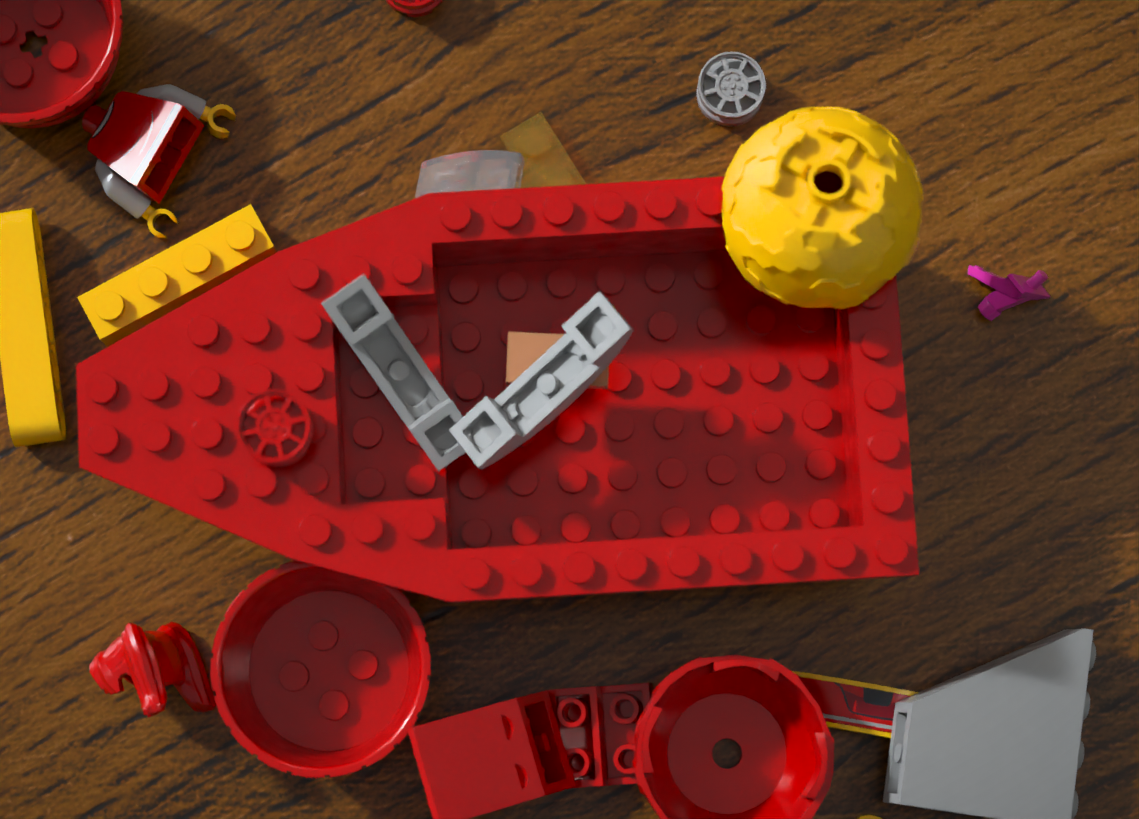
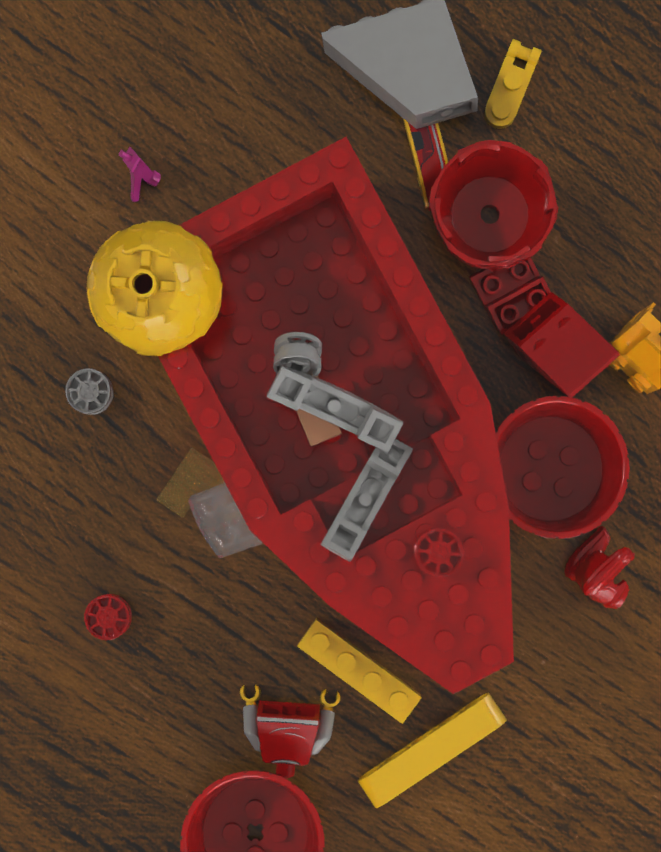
camera: 110 degrees left, 5 degrees up
(640, 364) = (298, 353): none -> light grey wheel

